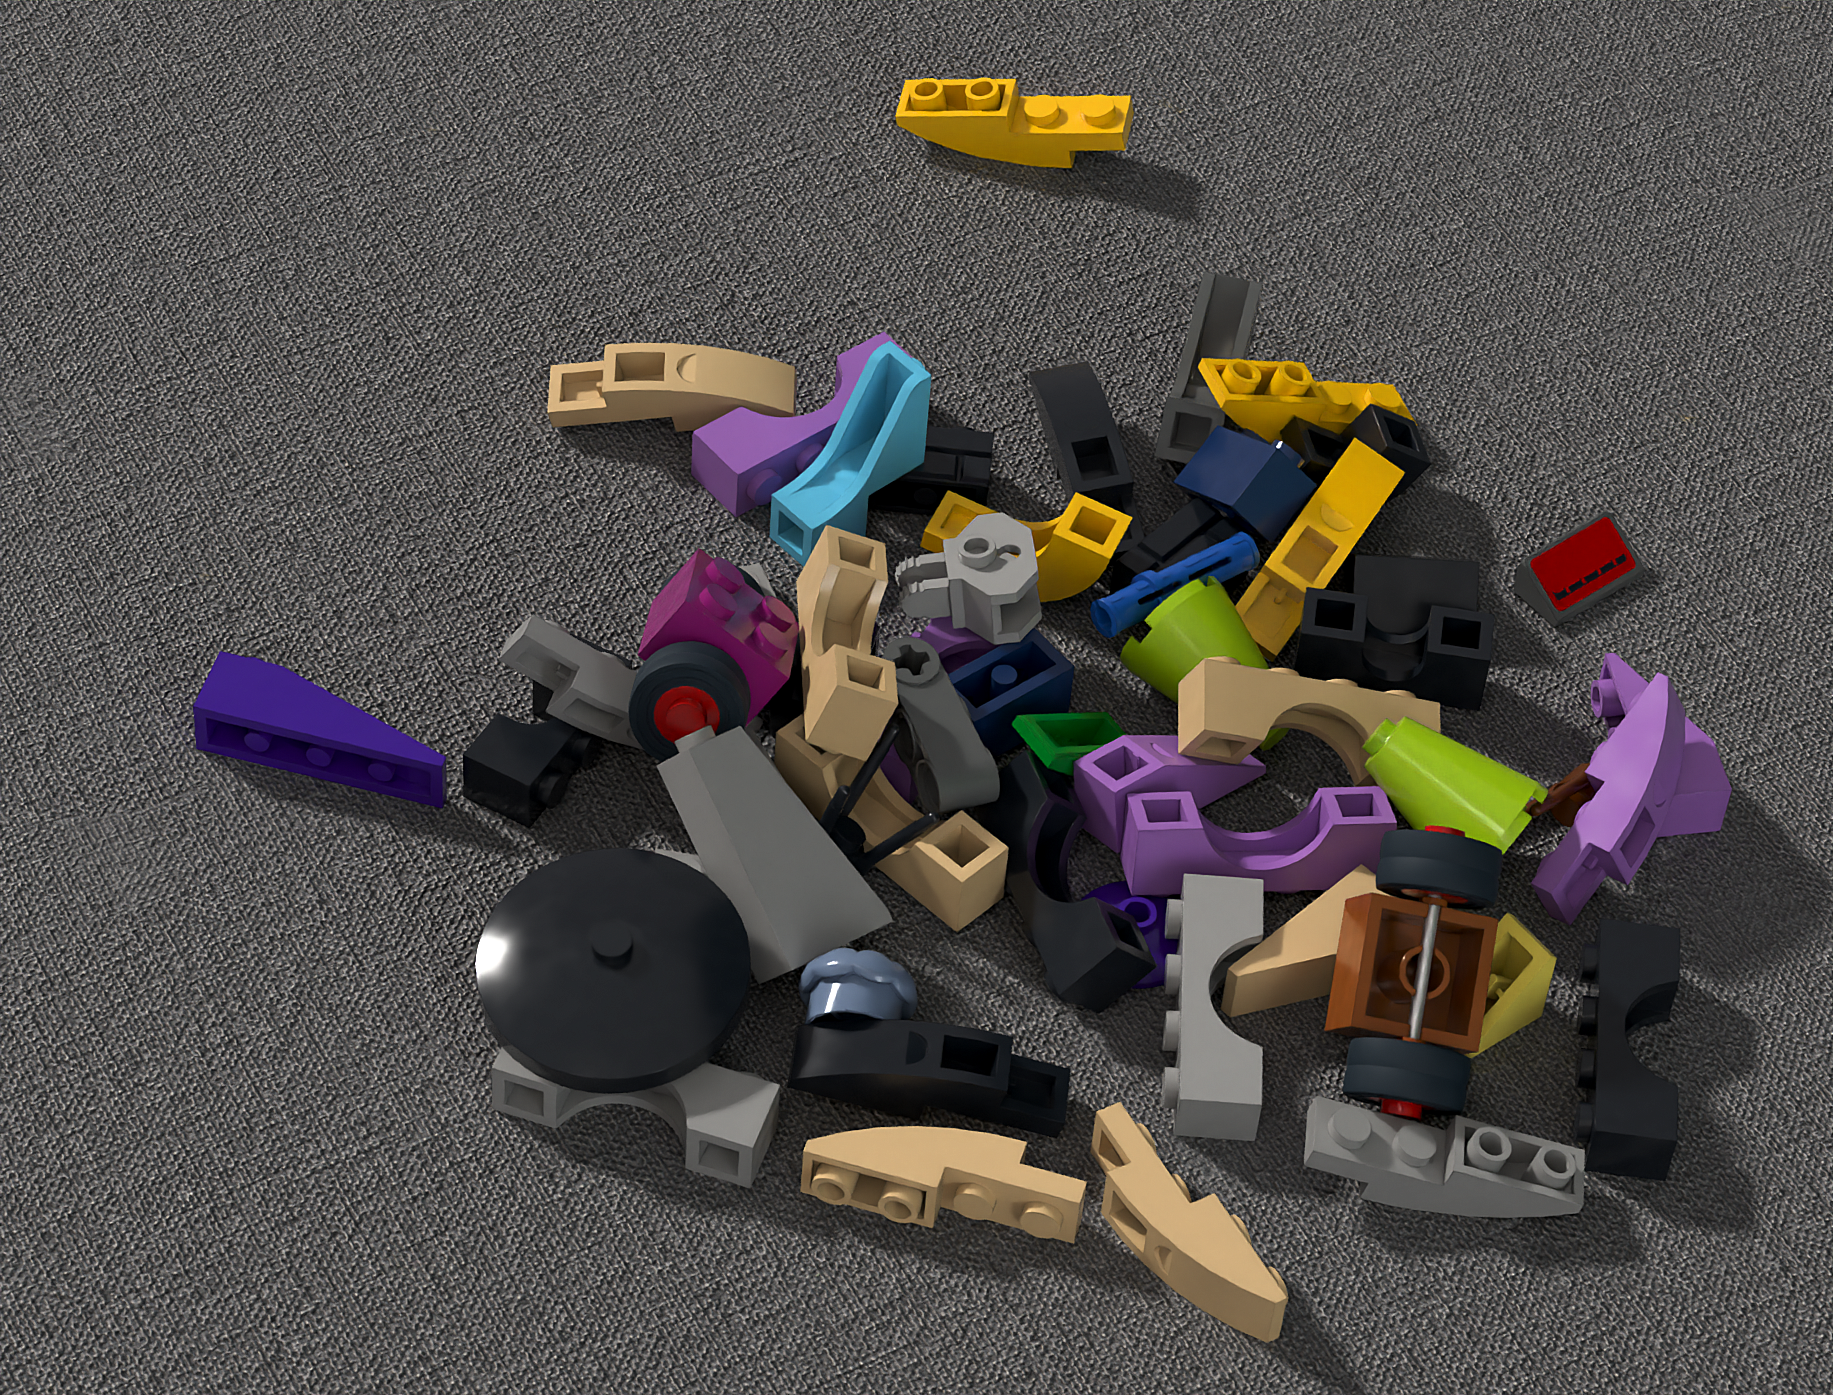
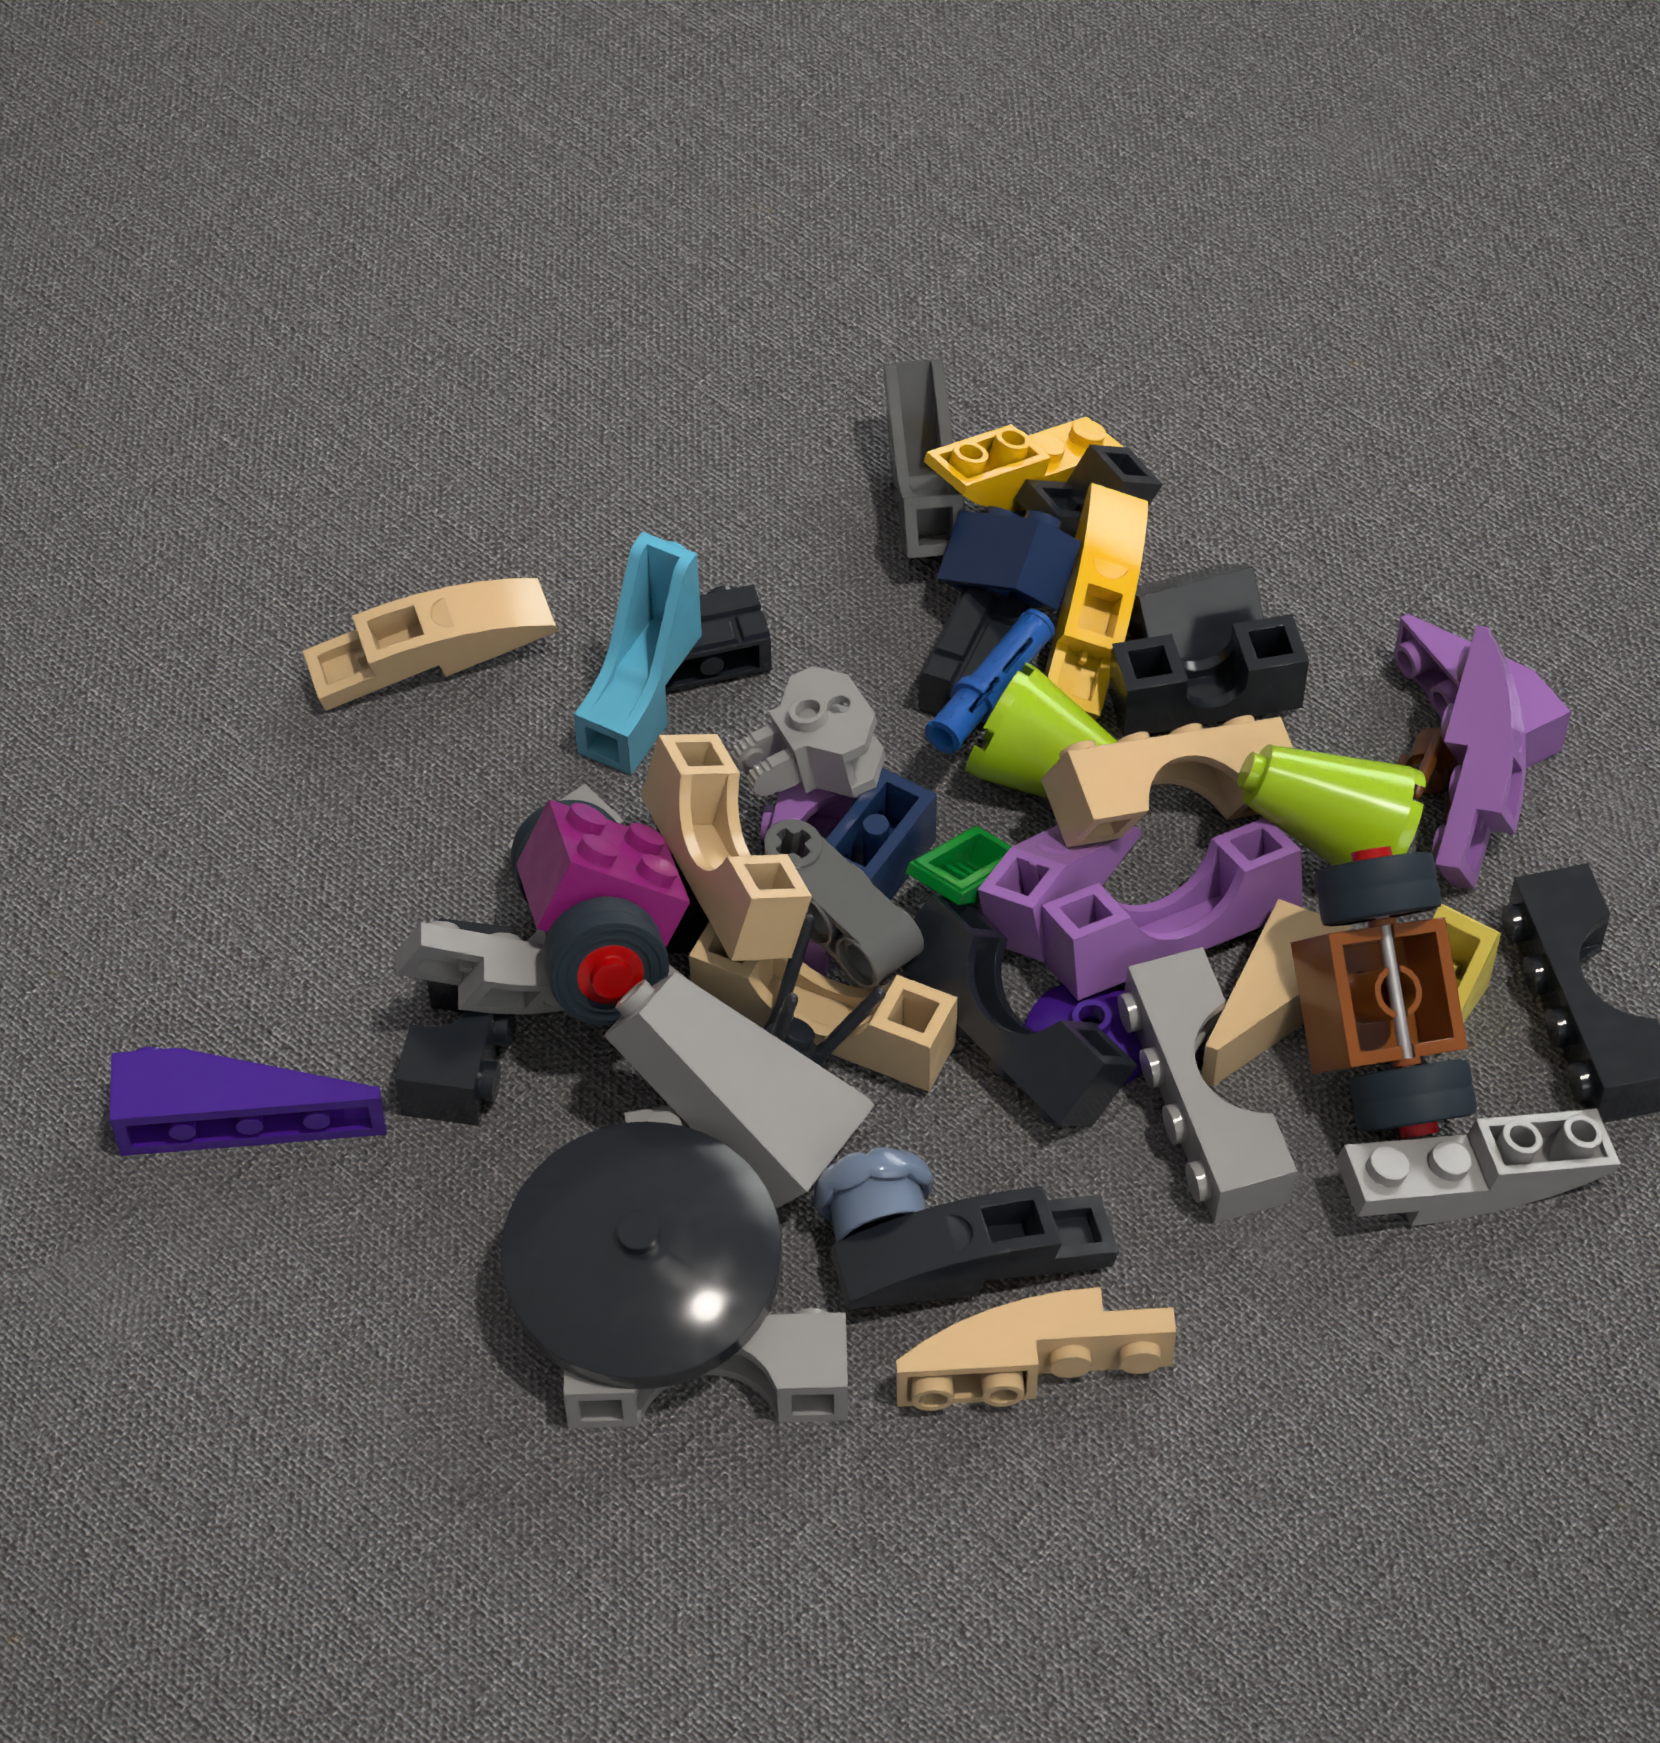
camera: 15 degrees left, 5 degrees up
(754, 454) = (534, 679): medium lavender arch -> none
(997, 124) = (615, 276): yellow slope -> none
(1067, 549) = (884, 665): yellow arch -> none
(1086, 442) = (849, 579): black slope -> none
(1184, 1242) = (1288, 1334): tan slope -> none
(1578, 569) = (1329, 542): slope -> none

